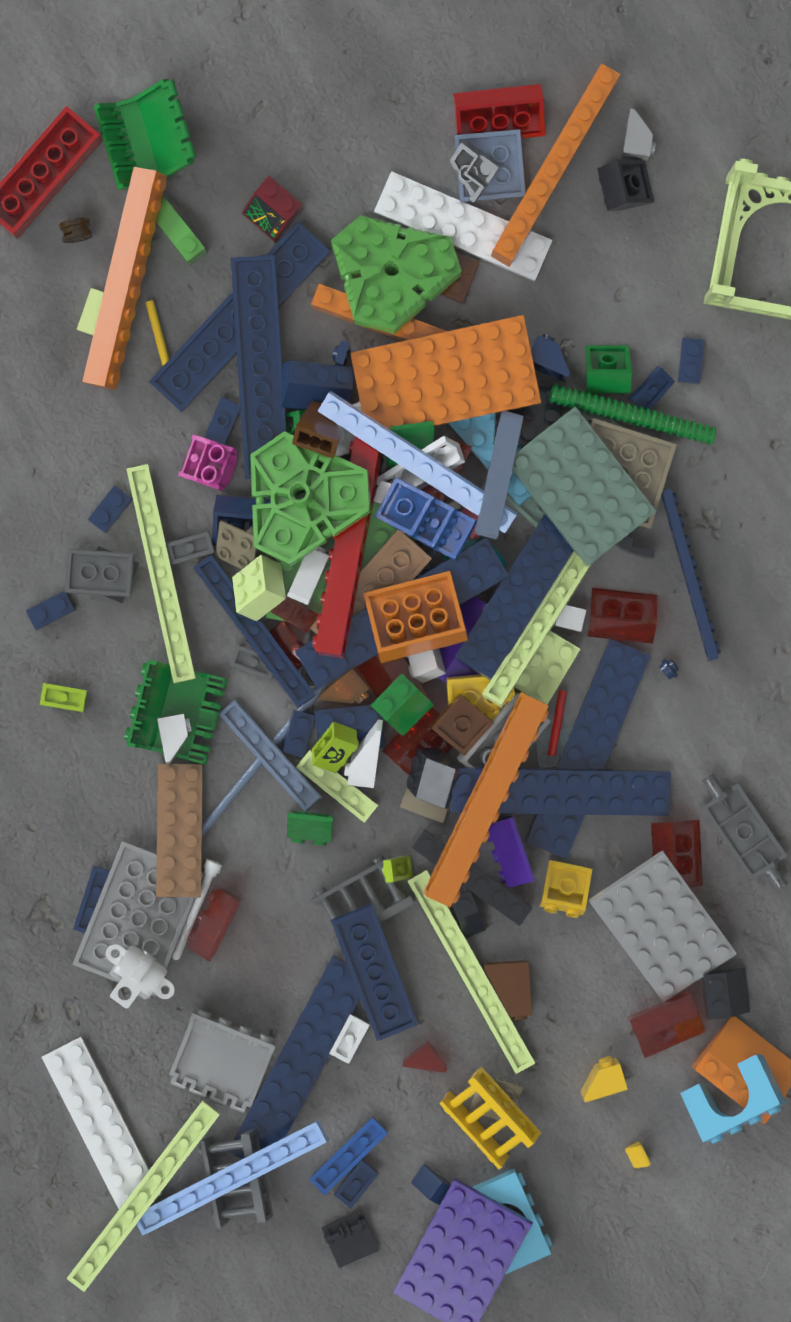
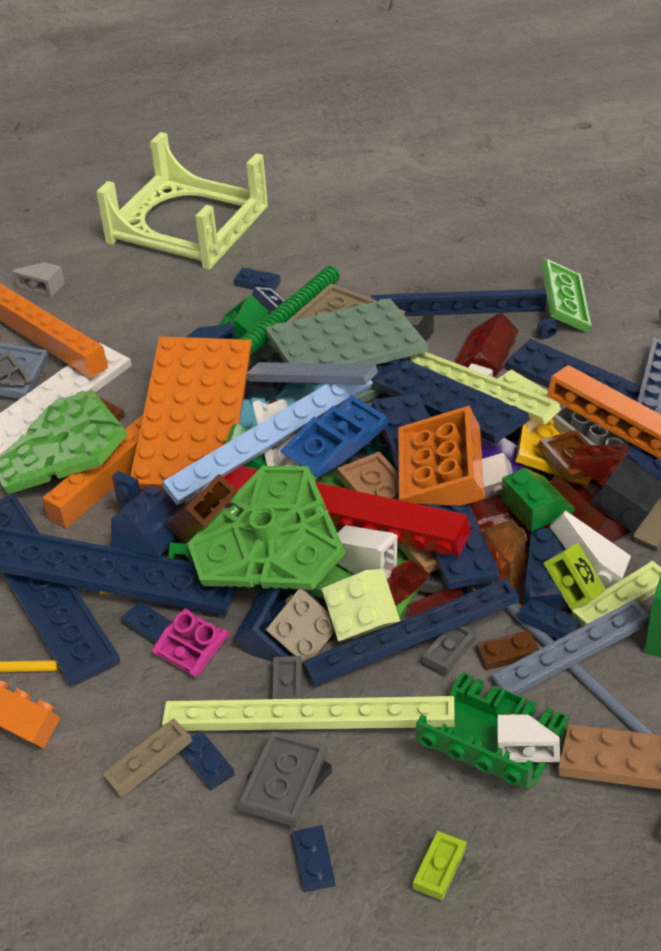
camera: 70 degrees left, 45 degrees down
(95, 469) = (147, 757): none -> dark tan plate
(265, 706) = (506, 649): none -> reddish brown plate
(450, 749) = (599, 460): none -> clear red slope
(625, 184) = (76, 291): black slope -> none
(721, 679) = (566, 295): none -> bright green tile

